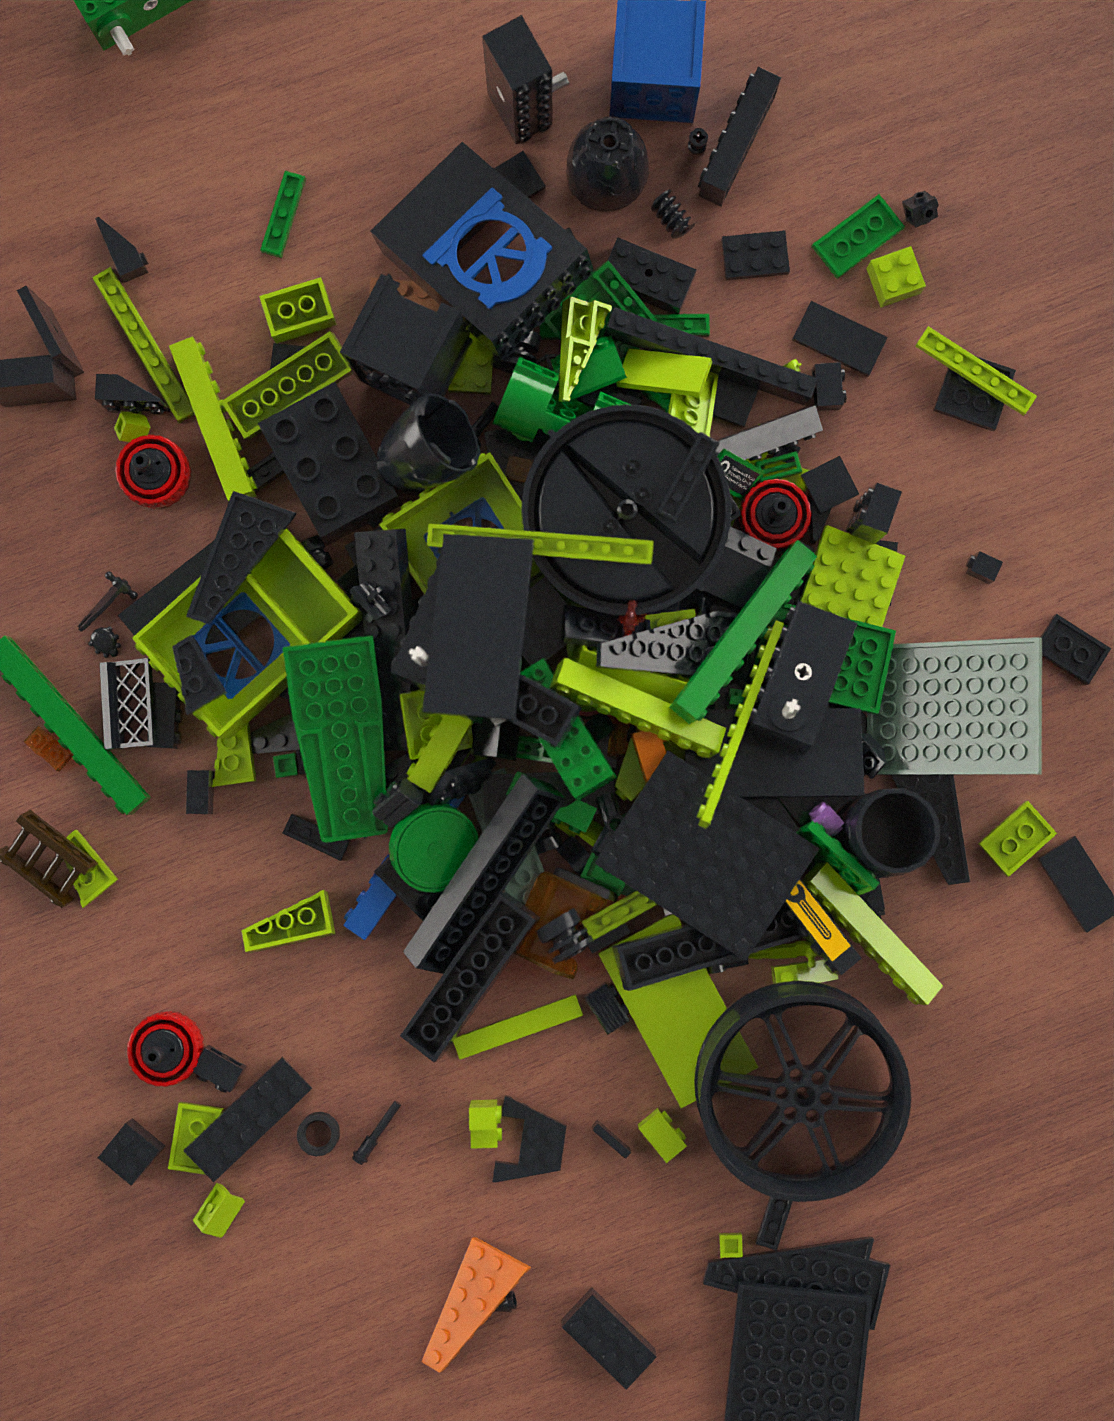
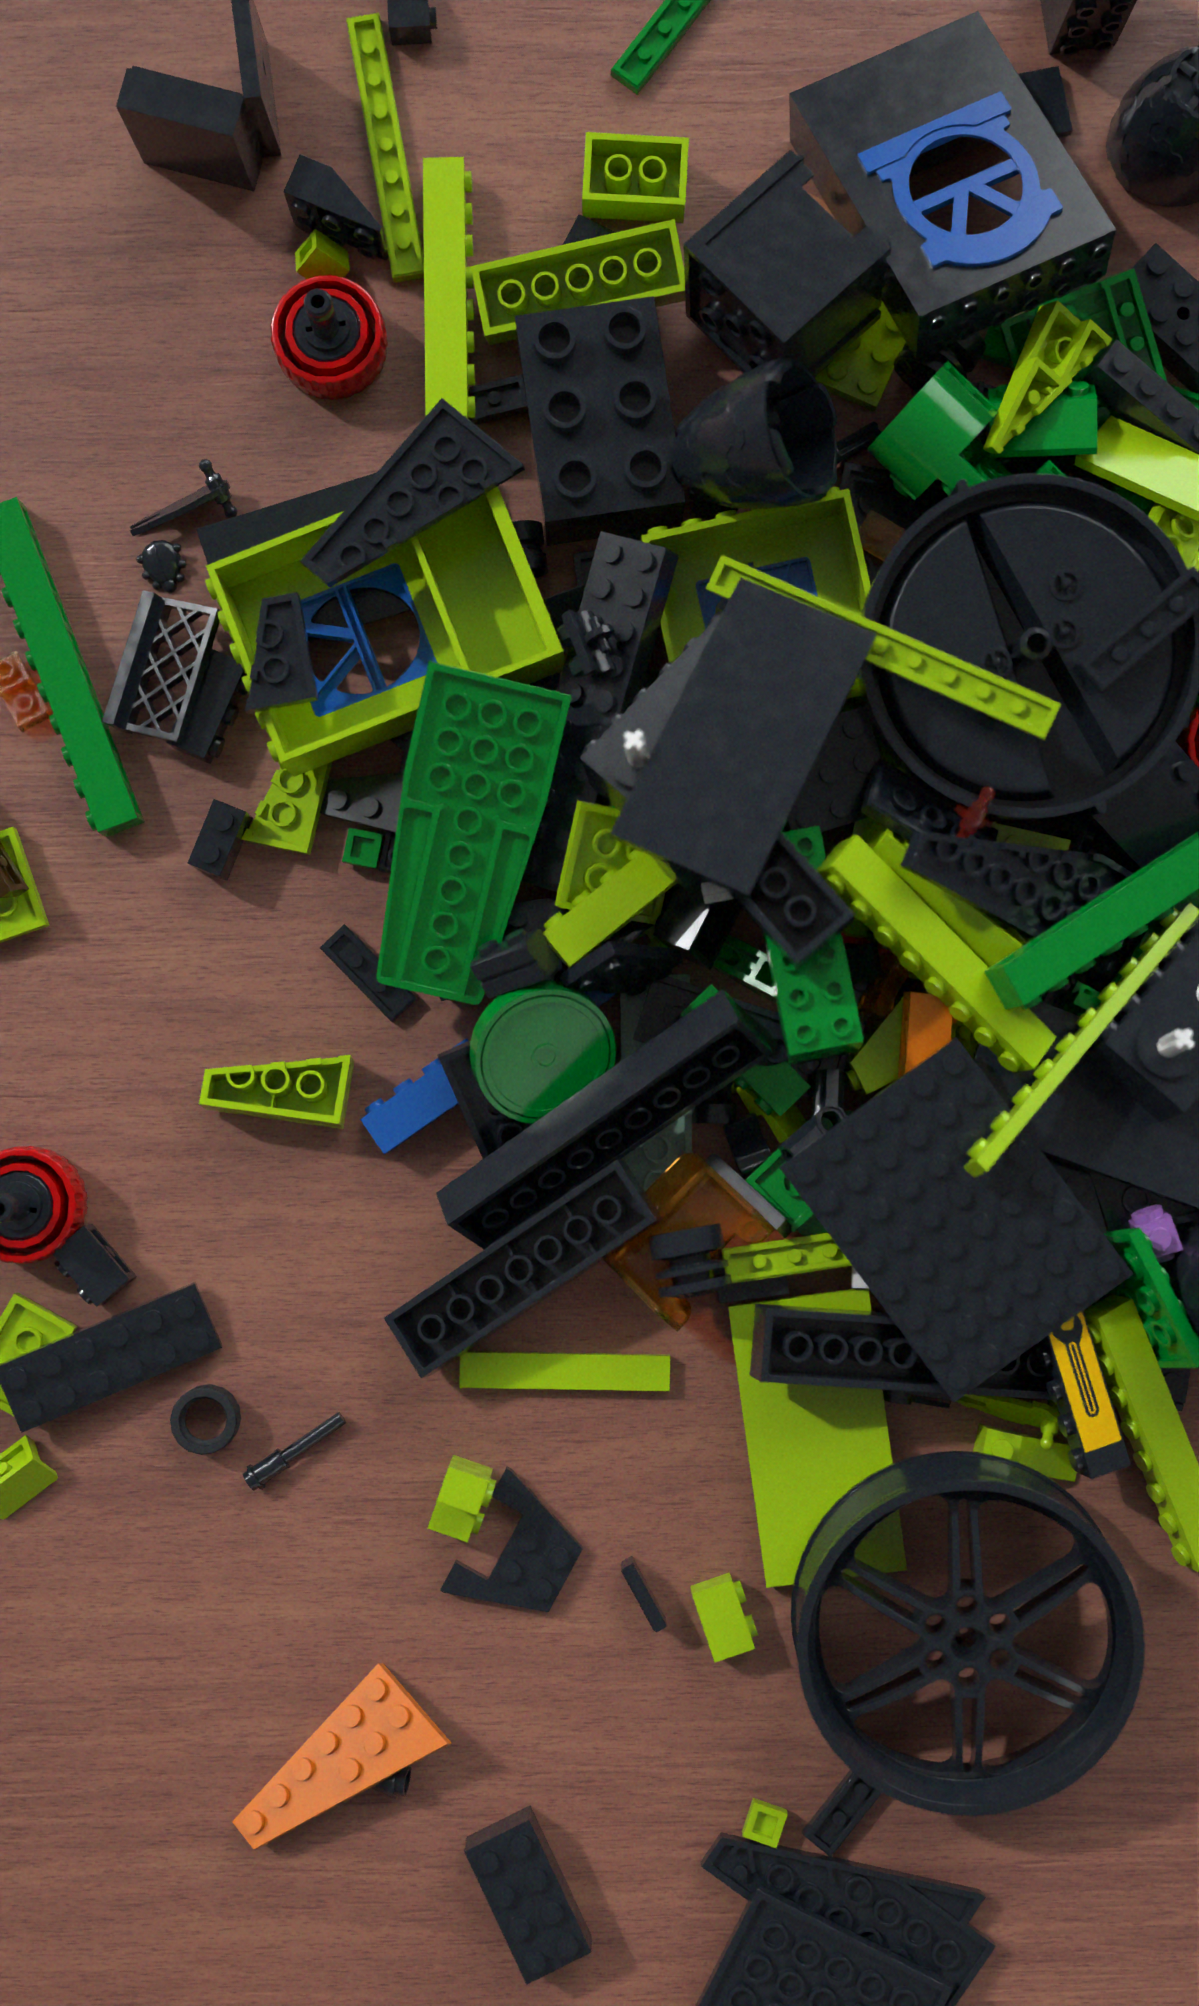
camera: 15 degrees right, 0 degrees up
(607, 1008) = (710, 1393): black brick -> none

